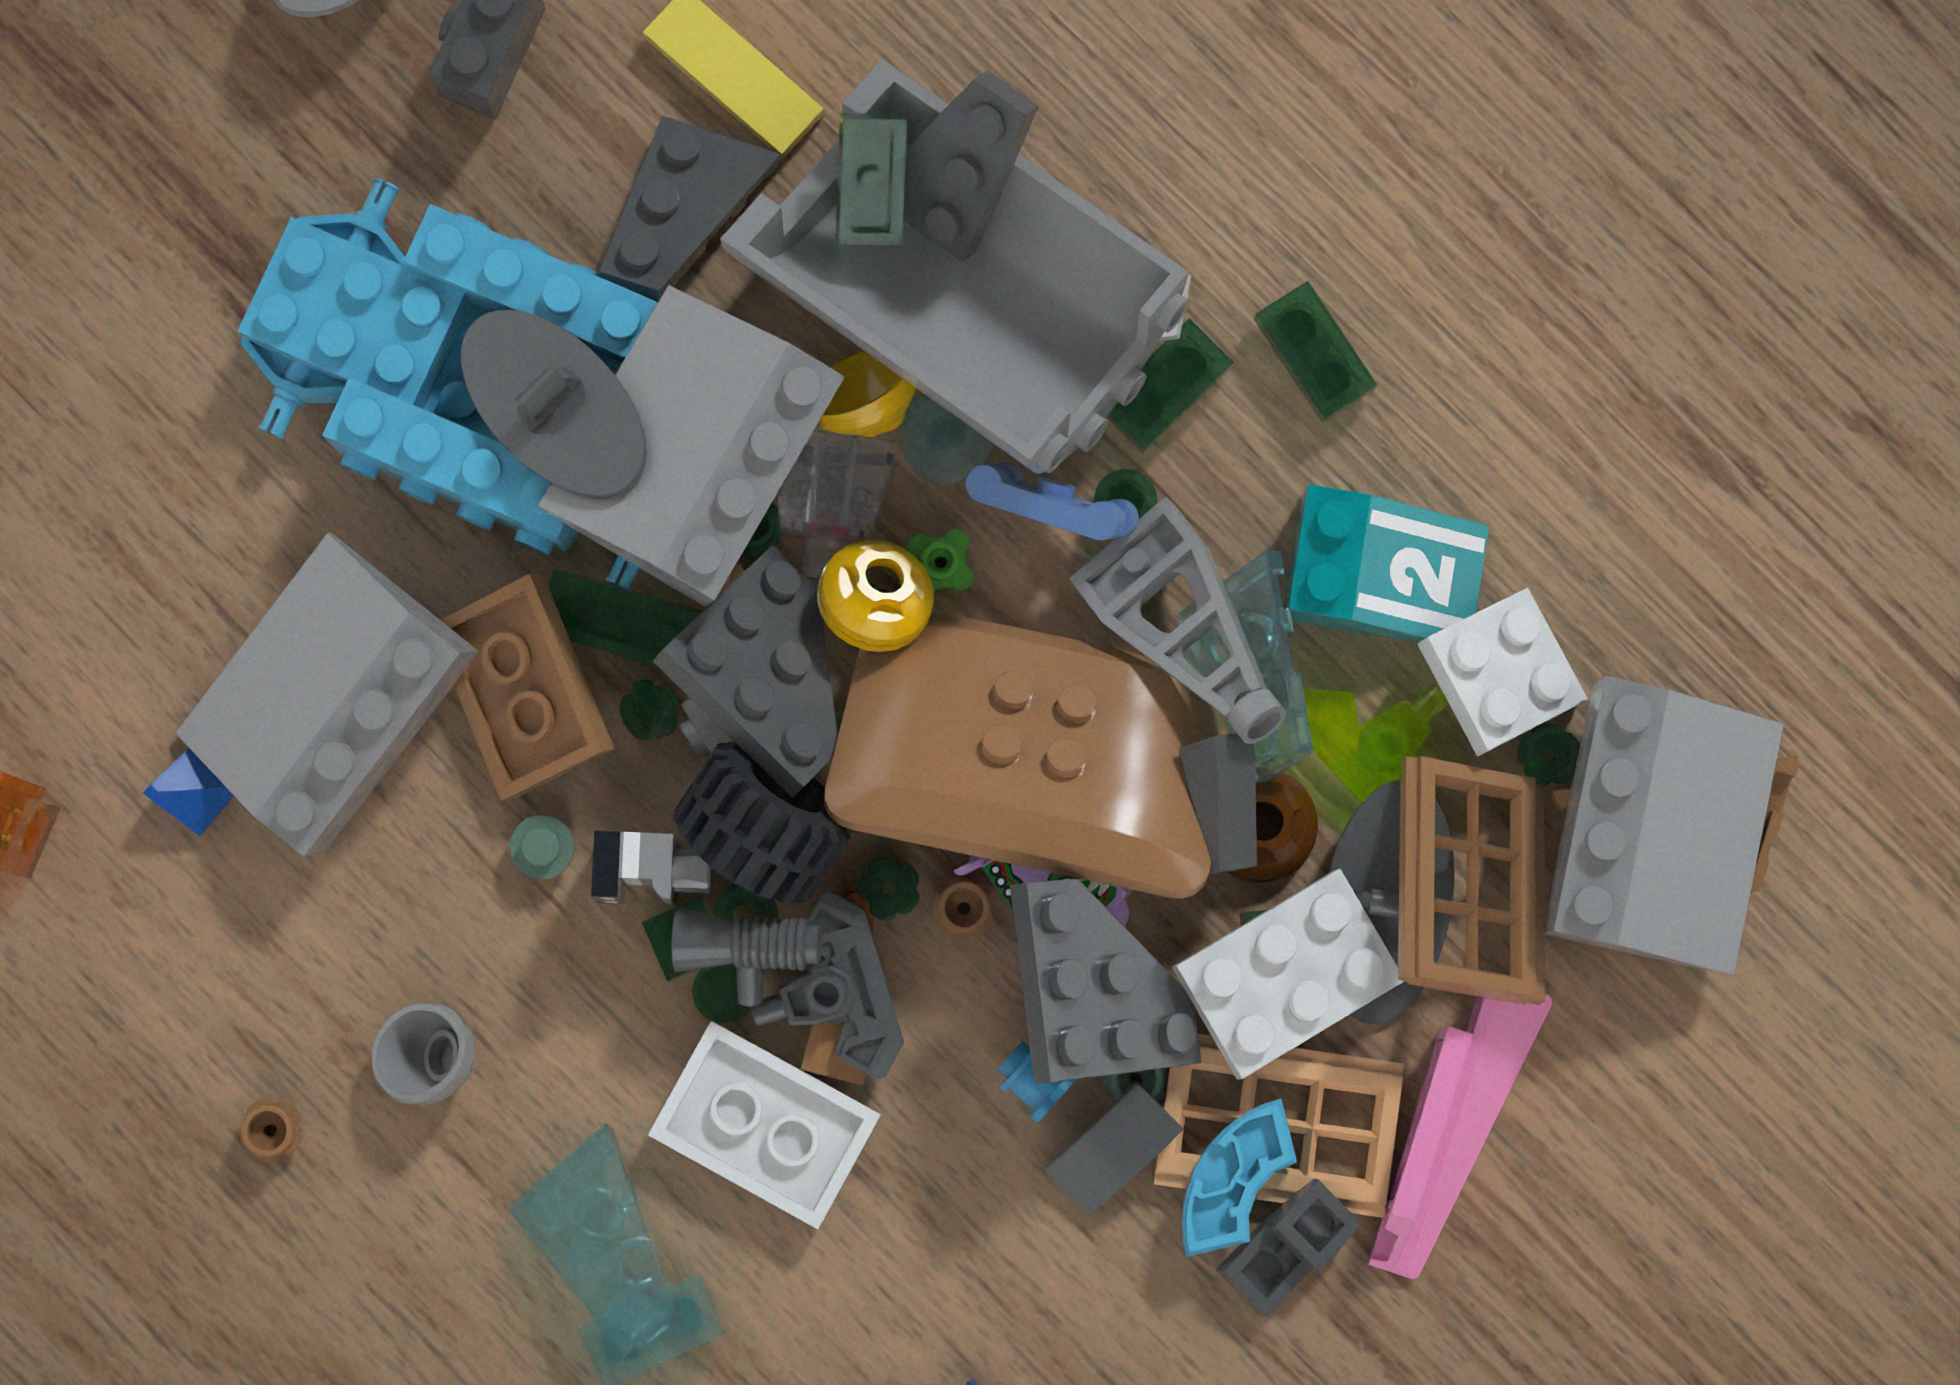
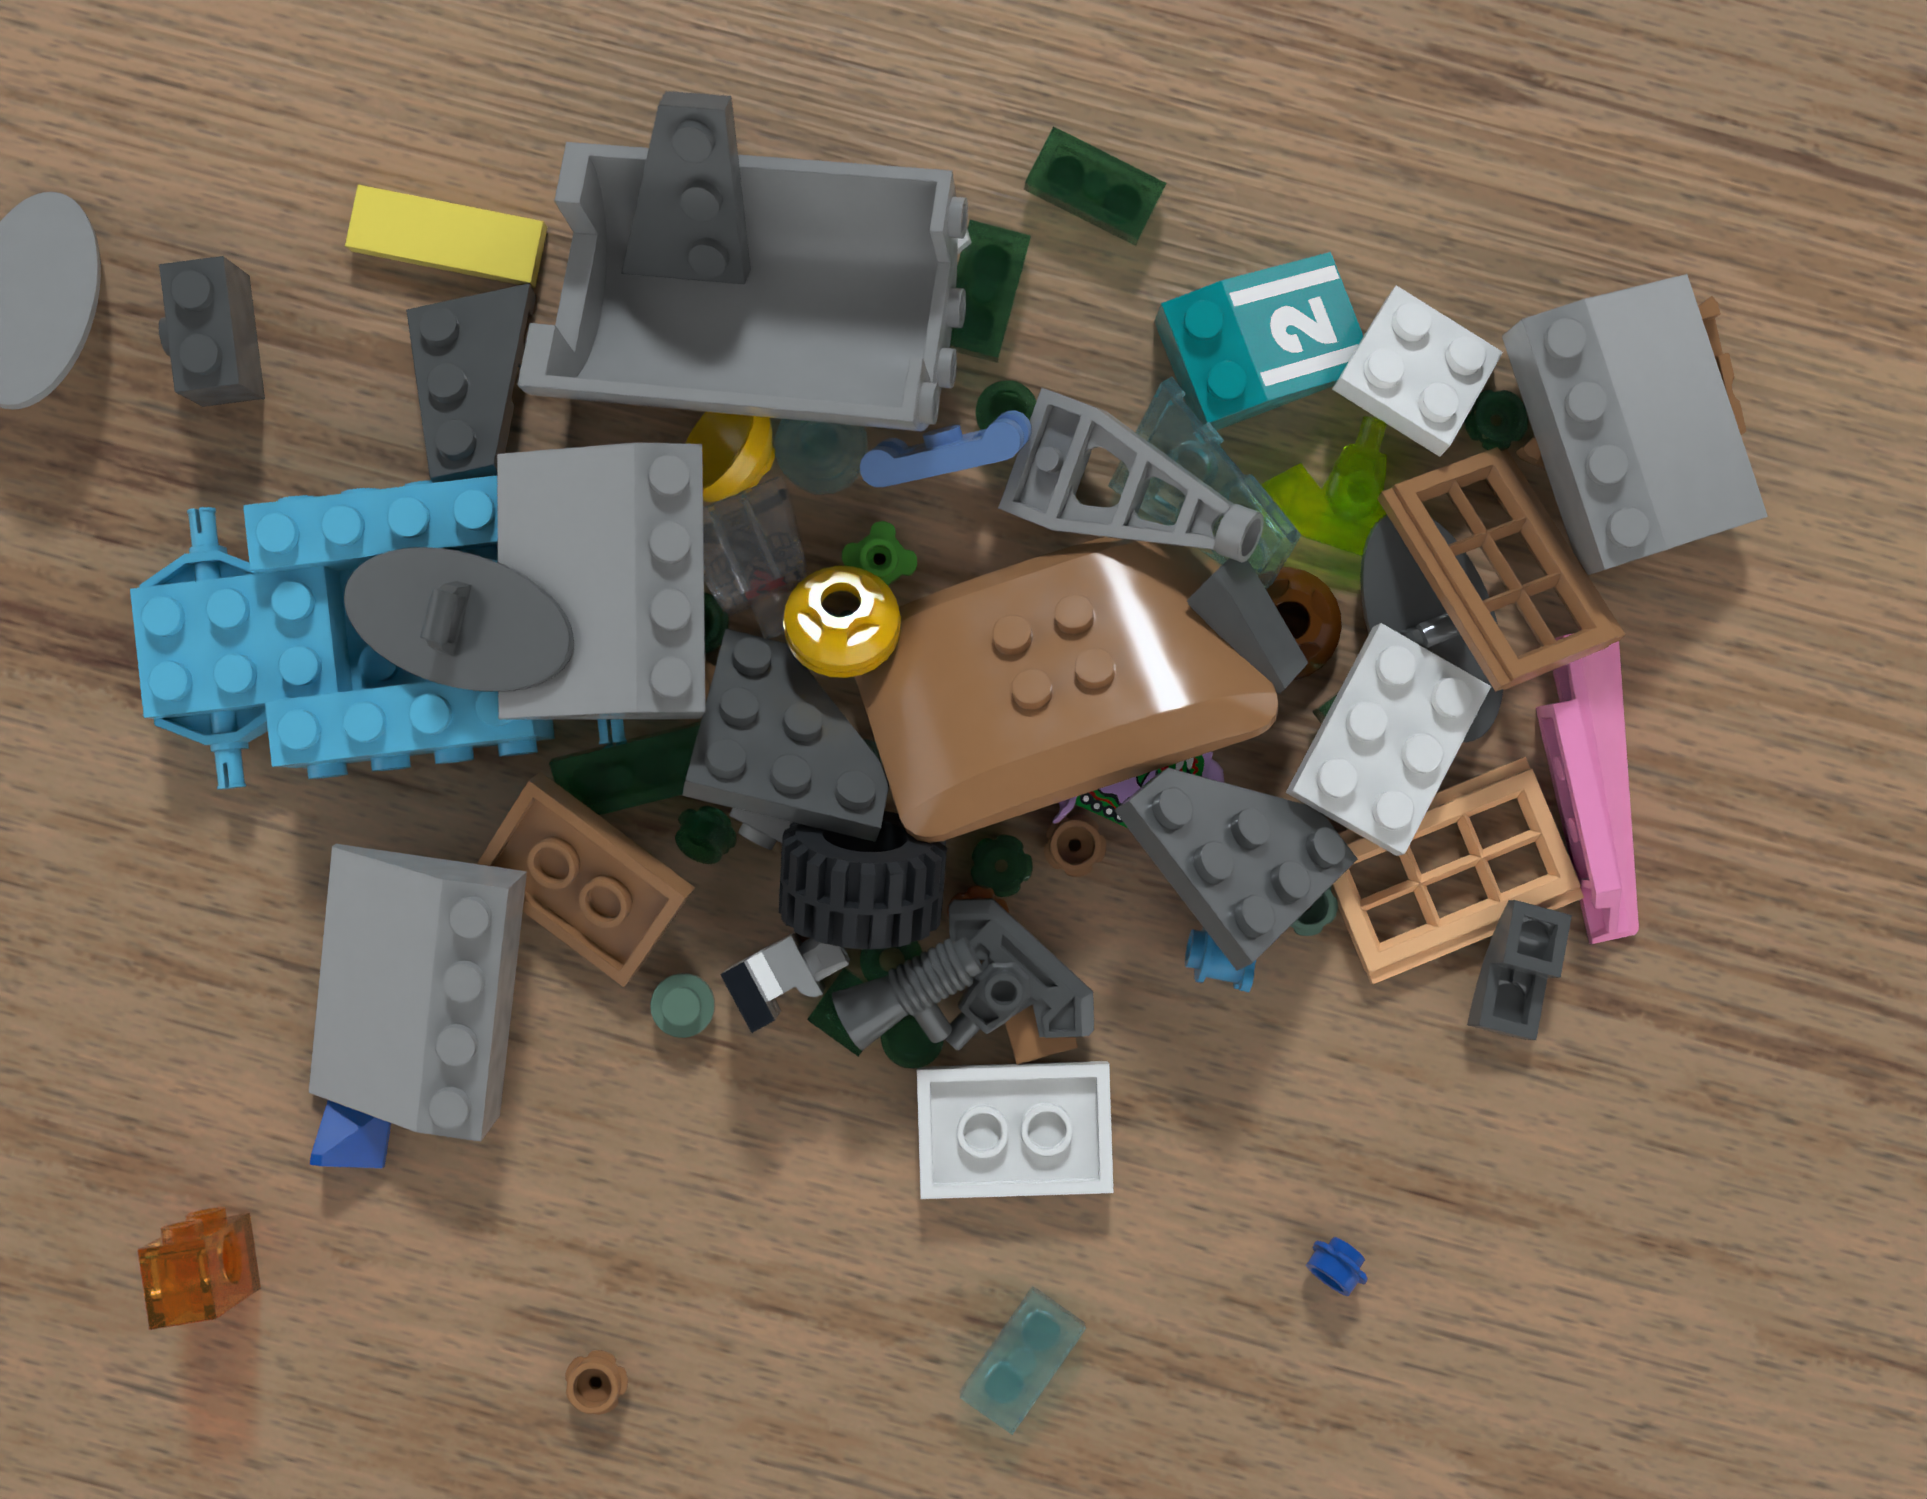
camera: 30 degrees left, 5 degrees up
(423, 1054) = (687, 1245): light grey piece -> none
(597, 1241) = (933, 1315): clear light blue wing -> none
(871, 179) = (620, 255): clear green plate -> none
(1113, 1148) = (1324, 975): dark grey slope -> none
(1231, 1174) = (1437, 940): medium azure tile -> none

